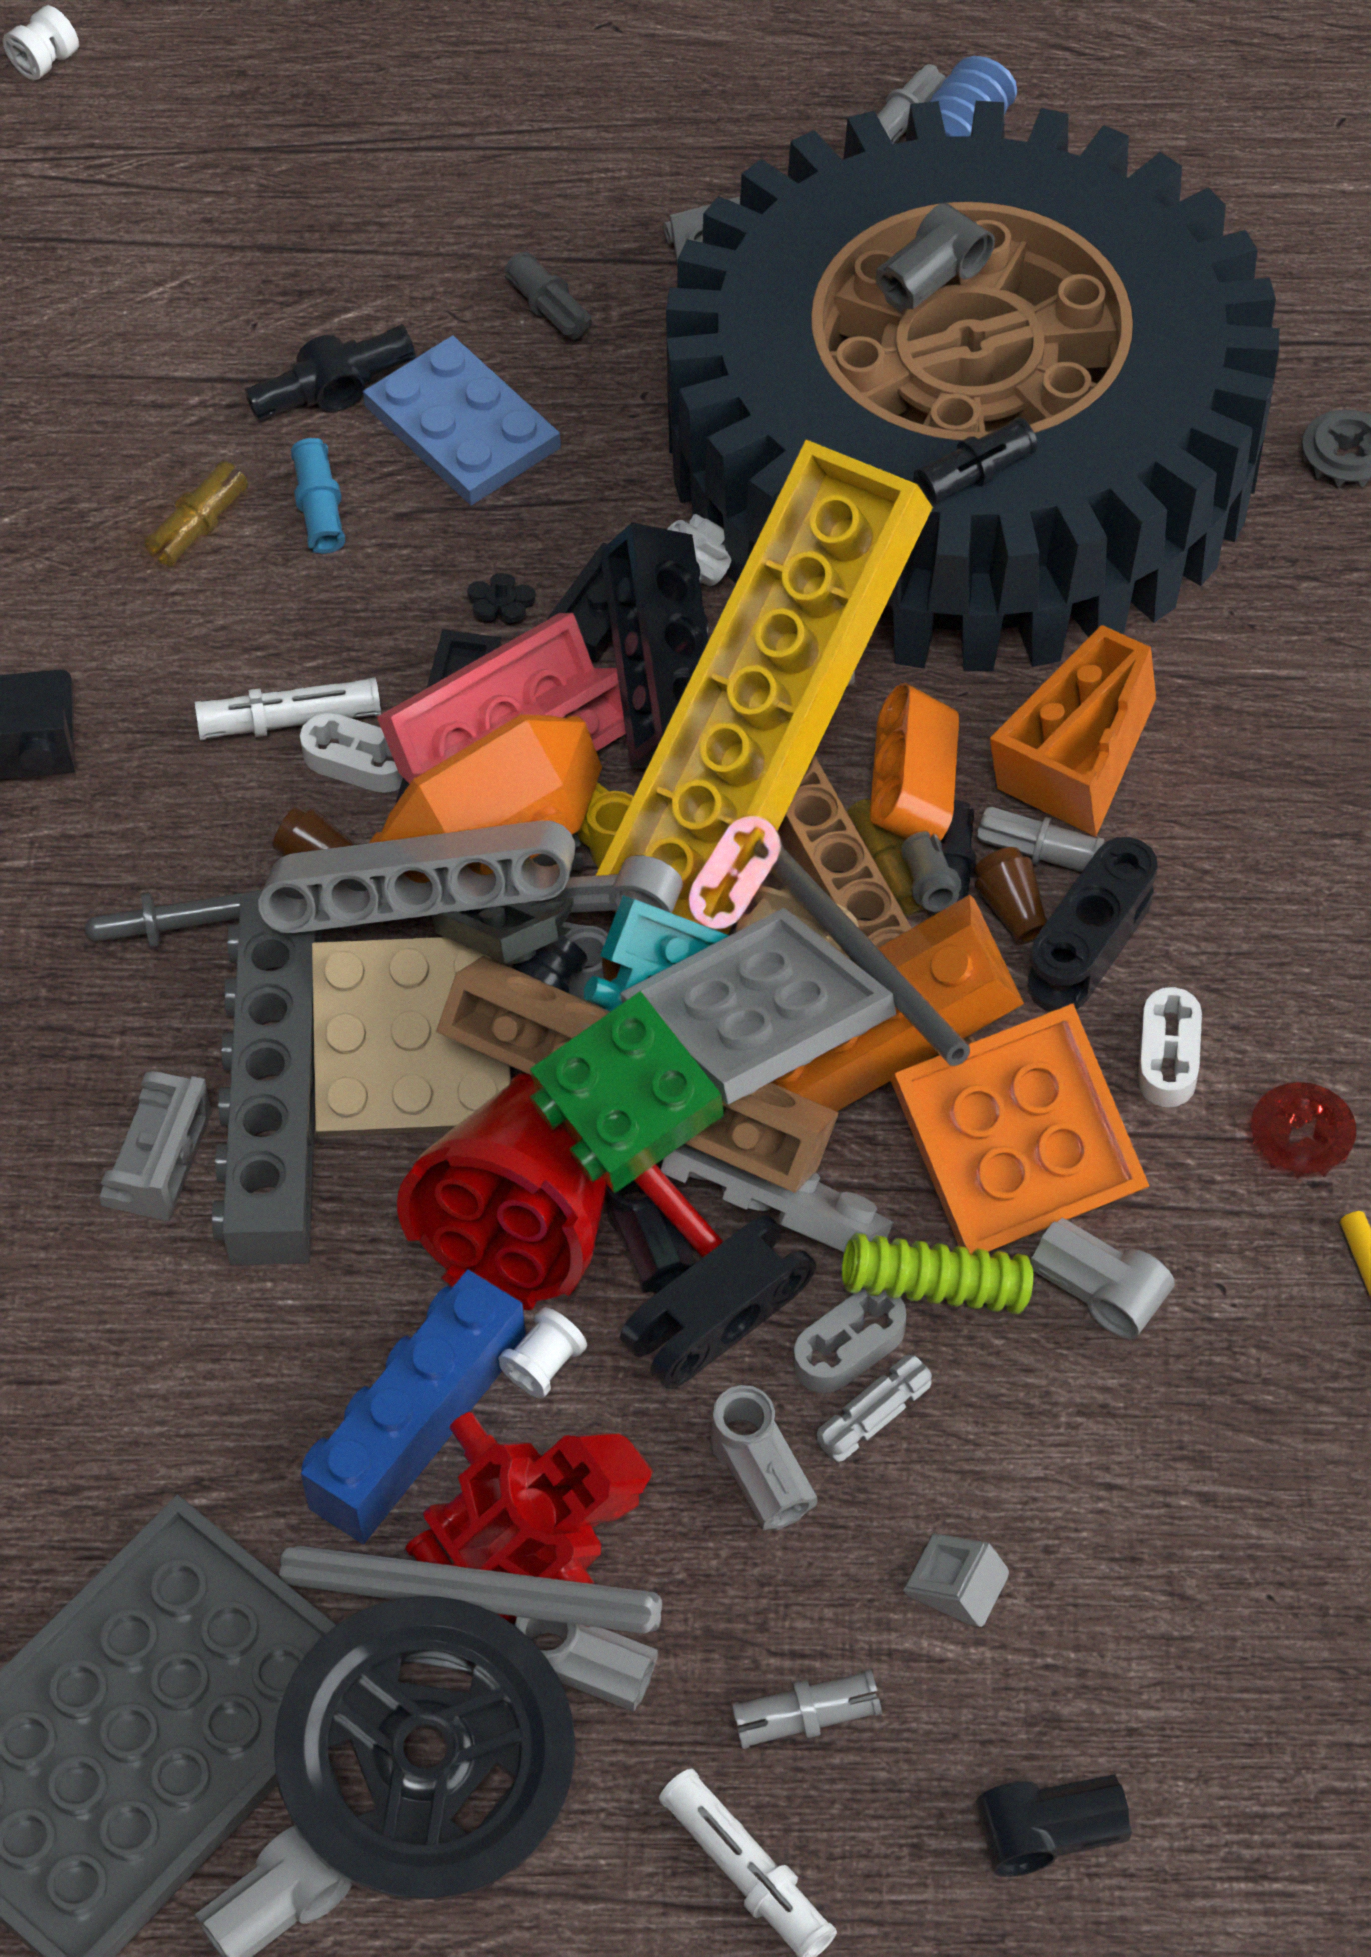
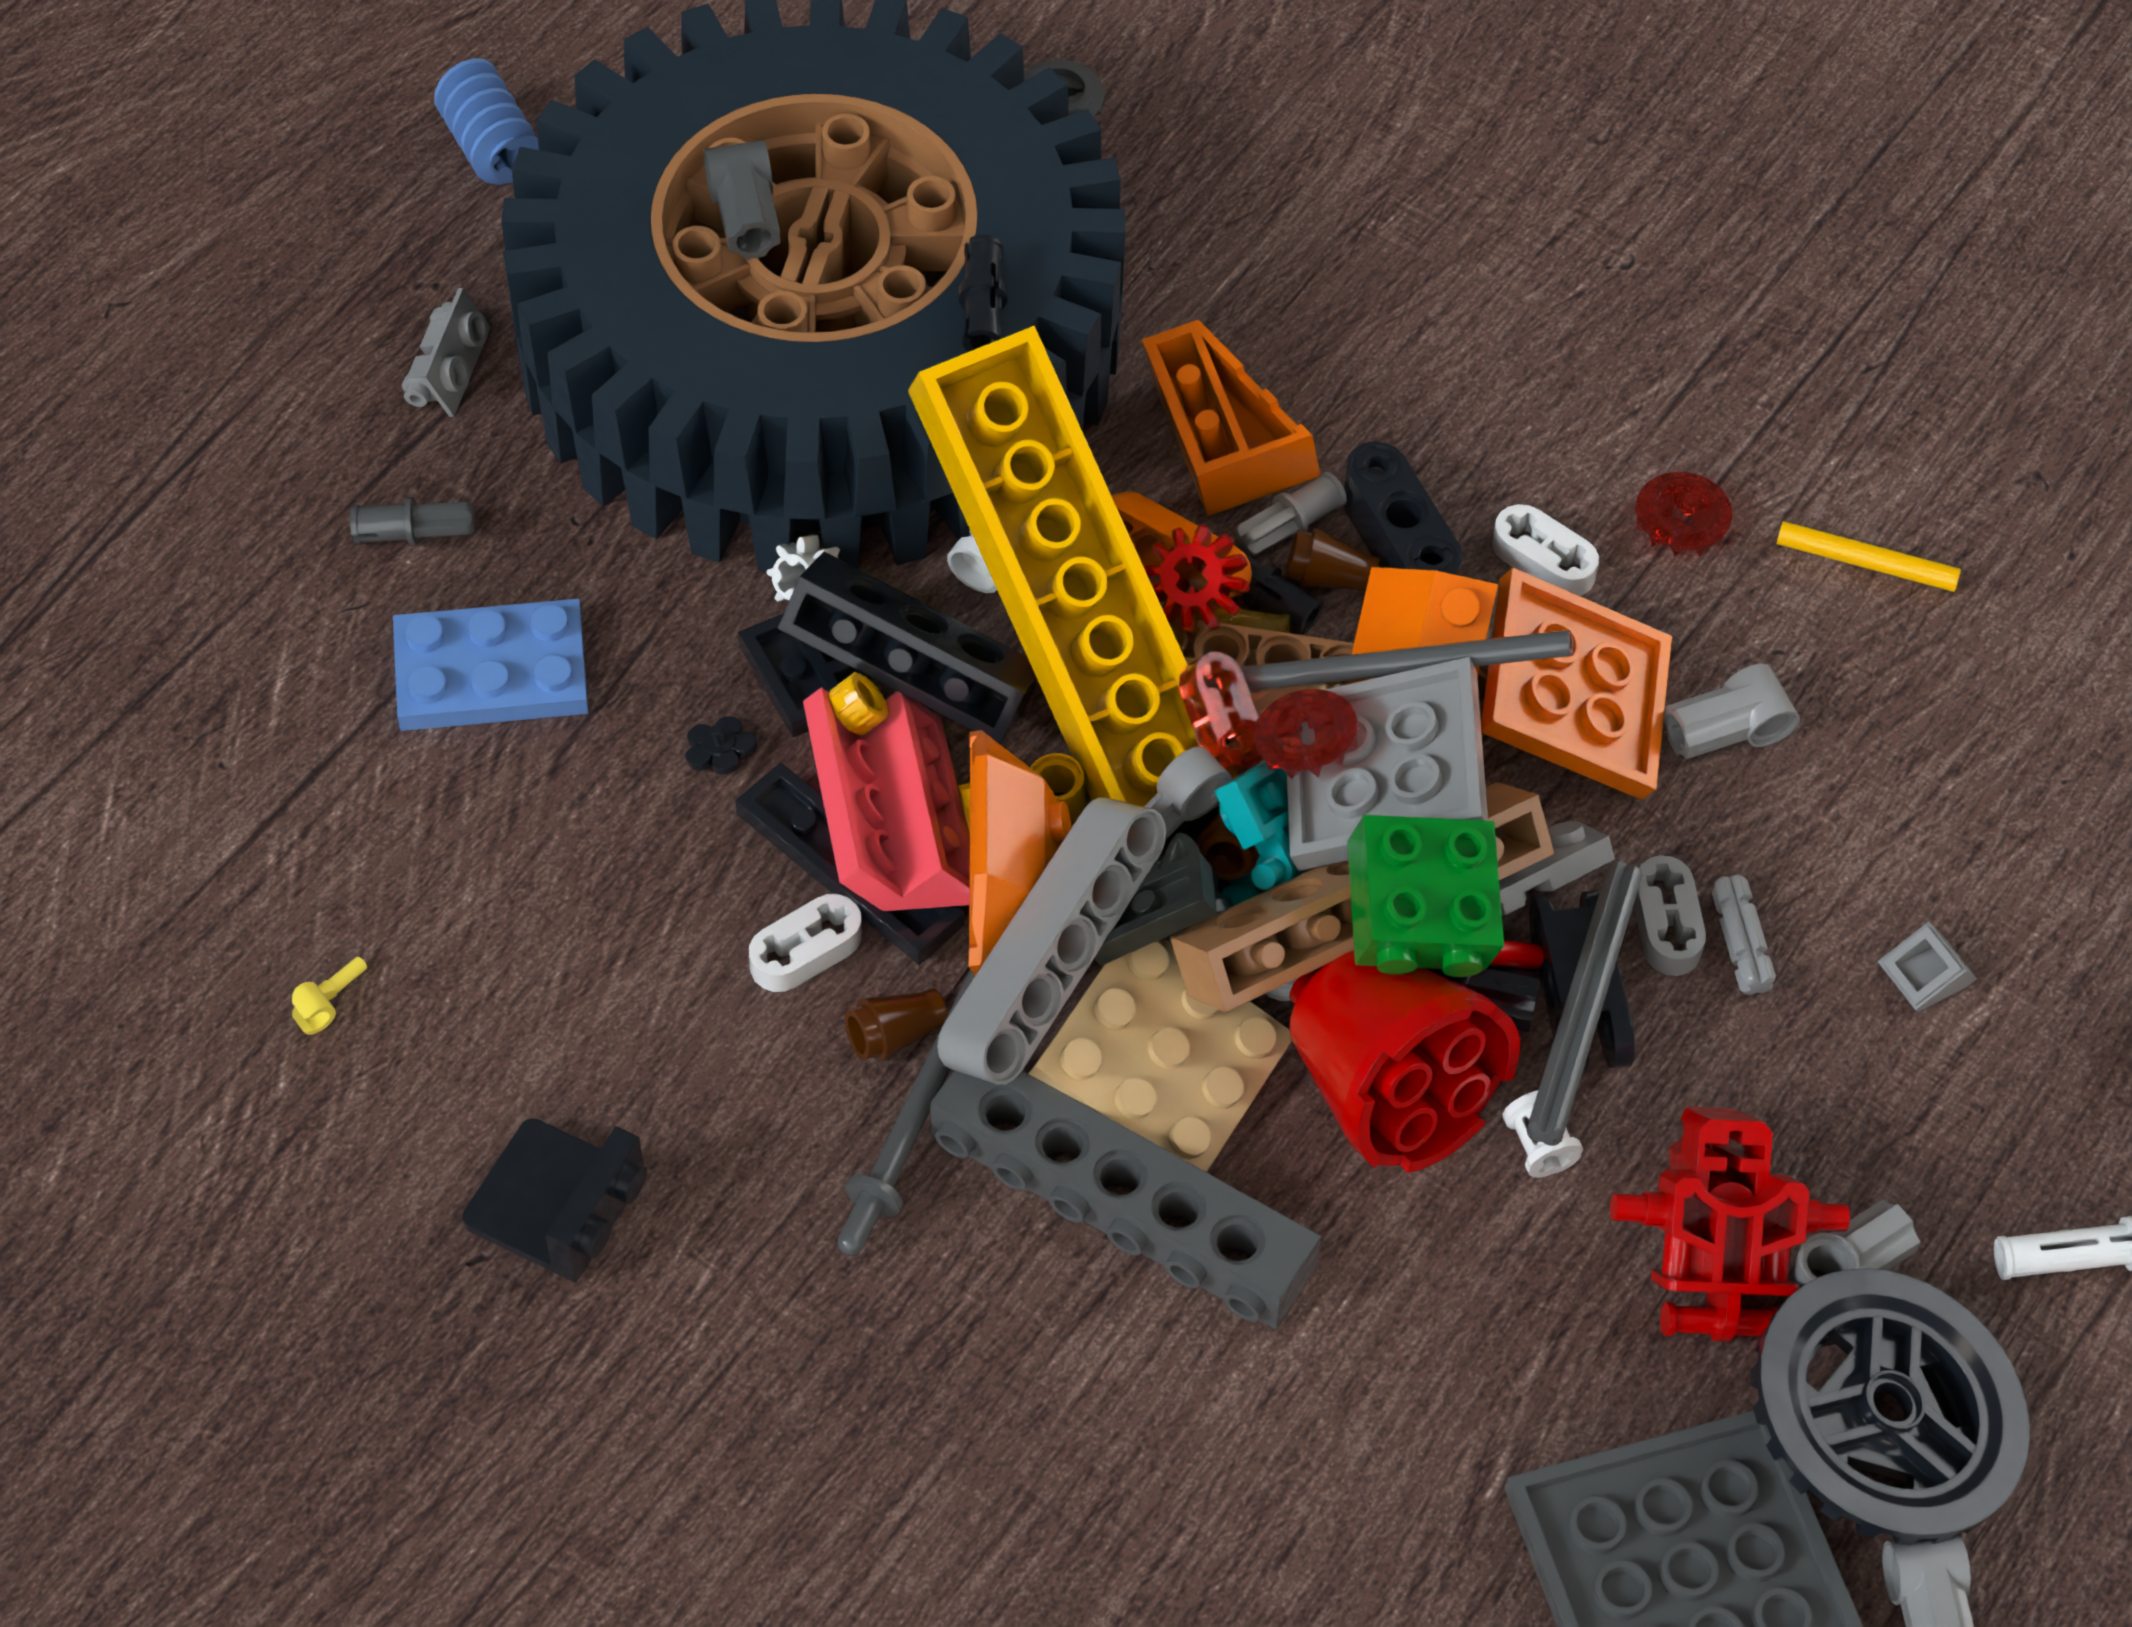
camera: 60 degrees left, 0 degrees up
(78, 488) = (311, 1001): none -> light yellow hand
(158, 1146) = (1124, 1315): light grey hinge -> none
(196, 513) = (427, 921): clear yellow pin -> none
(285, 708) = (706, 988): white pin -> none
(317, 495) = (490, 816): dark azure pin -> none
(330, 373) = (354, 730): black pin -> none
(407, 1412) = (1539, 1252): blue brick -> none
(492, 1590) = (1765, 1293): light grey axle -> none
(568, 651) = (858, 704): none -> yellow axle
(668, 1298) = (1584, 1003): none -> dark grey axle
(738, 912) = (1280, 726): none -> clear red gear
(761, 1460) = (1745, 1034): light grey piece -> none
(806, 1708) = (1988, 1130): light grey pin -> none
(865, 786) = (1217, 572): none -> red gear
(918, 90) = (432, 159): light grey axle -> none
(934, 882) = (1285, 597): dark grey pin -> none
(937, 1273) = (1668, 811): lime piece -> none

